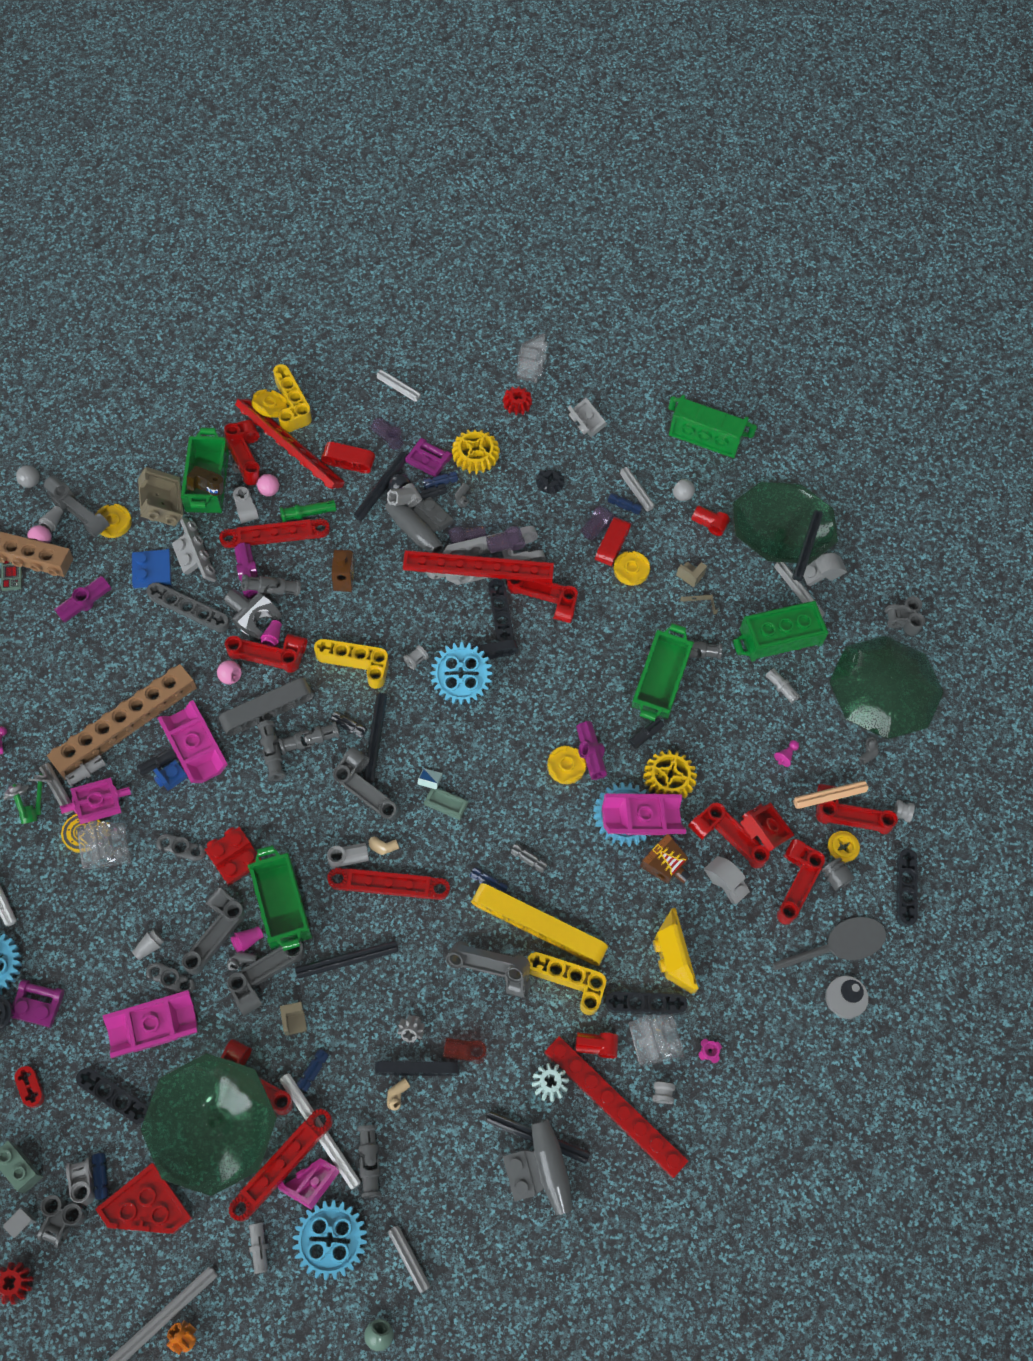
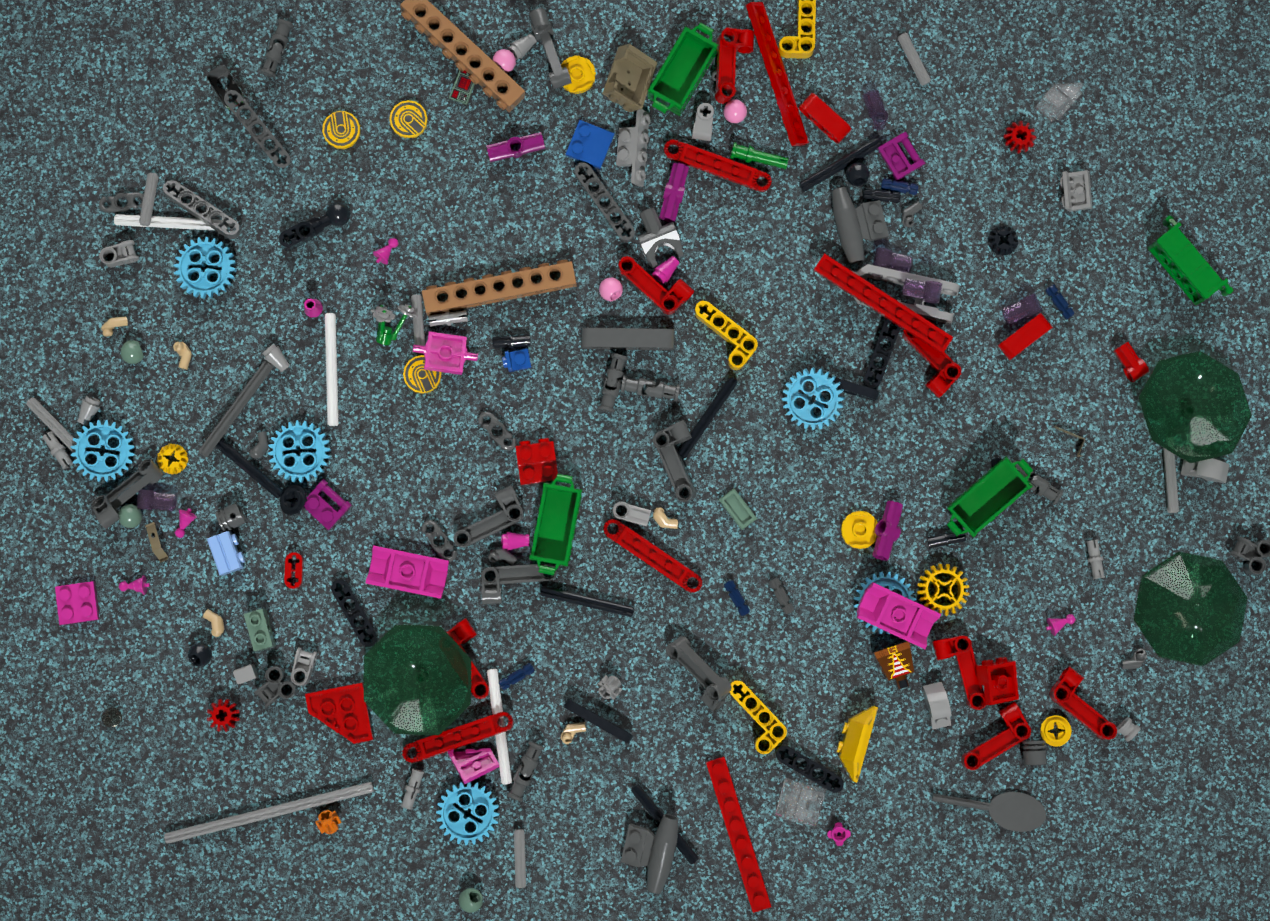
camera: 30 degrees right, 20 degrees up
(100, 1176) = (318, 669): dark blue axle -> none
(103, 845) = (434, 398): clear slope -> none
(148, 944) = (434, 503): light grey cone -> none
(193, 744) = (549, 341): dark pink piece -> none
(205, 481) = (678, 87): dark brown leg -> none
(268, 403) = (779, 19): yellow tile -> none
(270, 585) = (687, 222): dark grey piece -> none
(293, 1018) = (520, 628): dark tan panel -> none
(344, 565) = (759, 239): reddish brown torso -> none
(348, 724) = (691, 392): black axle -> none
(406, 495) = (856, 192): light grey piece -> none
(416, 657) = (781, 359): light grey bush -> none
(429, 778) = (734, 481): light aqua tile -> none
(462, 1050) = (641, 726): clear red piece -> none
(477, 457) = (945, 165): yellow gear -> none
(540, 924) = (758, 657): yellow beam -> none
(542, 1084) = (703, 789): light aqua gear -> none
(603, 1045) = (754, 782): red piece -> none
(631, 568) = (1027, 371): yellow tile -> none
(637, 489) = (1080, 291): light grey axle -> none
(663, 1093) = (782, 846): light grey wheel -> none
(684, 490) = (1124, 318): light grey piece -> none
(690, 573) = (1079, 405): dark tan panel -> none
(781, 631) = (1126, 510): green container -> none
(807, 545) = (1199, 444): black axle -> none
(830, 794) = (1071, 684): light nougat axle -> none
(846, 997) = (977, 854): light grey tile -> none
(903, 887) = (1085, 792): black beam -> none

